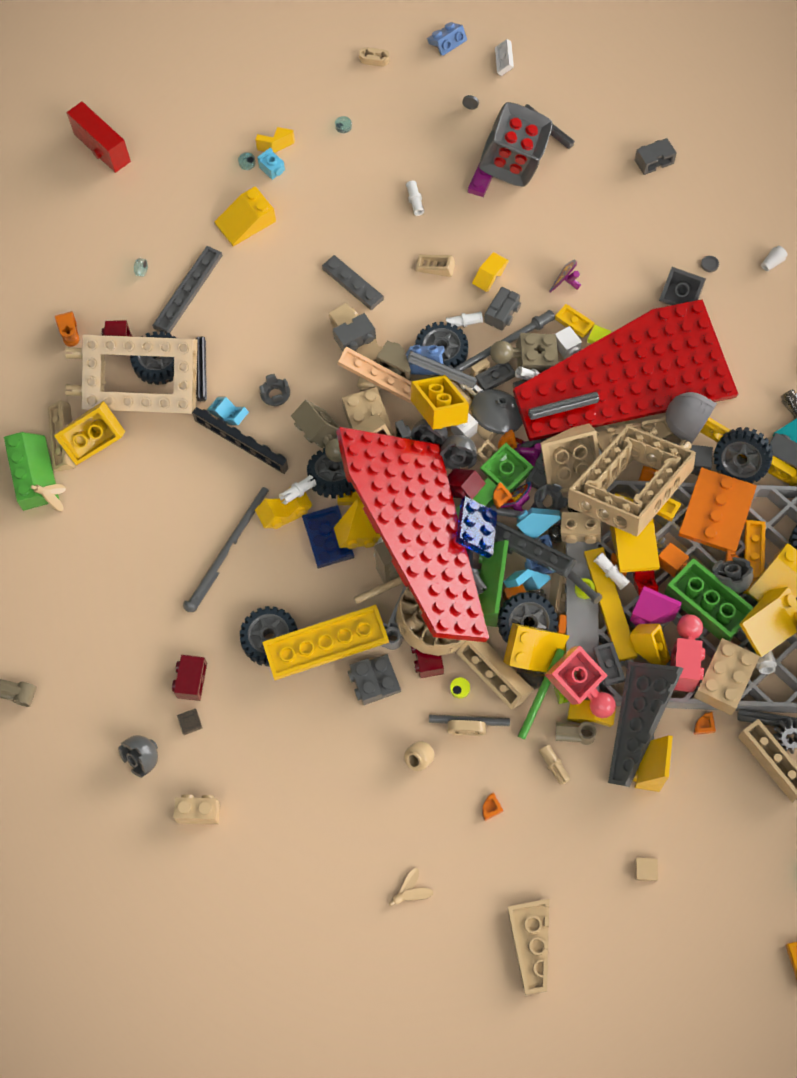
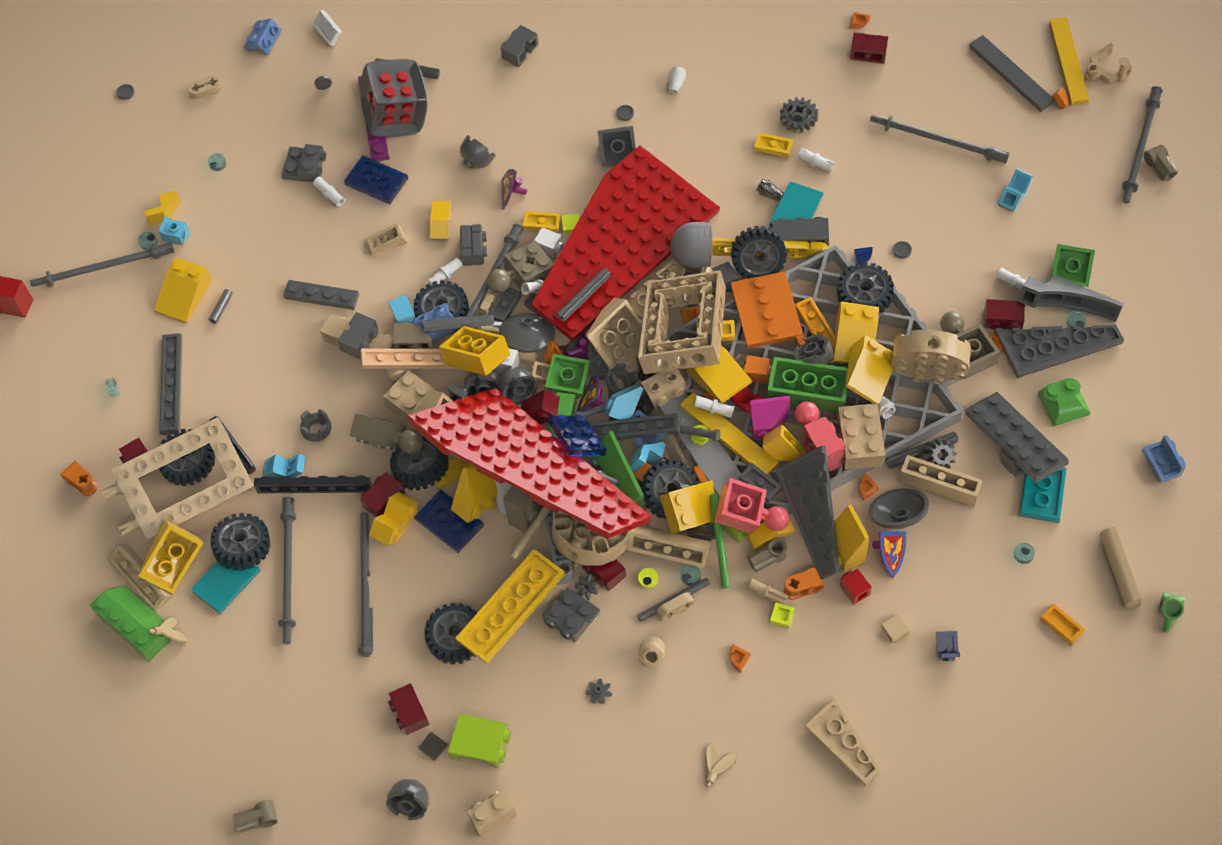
camera: 30 degrees left, 5 degrees down
(122, 478) = (223, 585): none -> teal tile
(148, 465) = (227, 545): none -> wheel
(203, 456) = (287, 517): none -> dark grey bar
(228, 741) = (479, 740): none -> lime panel
(246, 173) = (154, 252): none -> dark grey bar
(267, 247) = (220, 306): none -> flat silver piece
(283, 479) = (377, 496): none -> dark red brick
(297, 489) = (399, 494): white pin -> none
(310, 28) = (125, 91): none -> dark grey piece
(357, 764) = (599, 694): none -> dark grey plant
(403, 663) = (586, 586): none -> dark grey plant
(407, 333) = (402, 310): none -> medium azure slope
(411, 163) = (304, 163): none -> dark grey plate
(460, 208) = (376, 179): none -> clear blue plate
(497, 708) = (690, 575): none -> clear light blue tile
(501, 495) = (578, 399): orange tile -> none
(553, 793) = (782, 615): none -> neon yellow tile
(555, 230) = (475, 153): none -> dark grey cylinder
(592, 777) = (806, 582): none -> orange piece
(635, 808) = (855, 586): none -> red brick
(682, 916) = (947, 645): none -> dark blue bracket
(688, 796) = (892, 550): none -> shield
(720, 763) = (899, 508): none -> dark grey dish

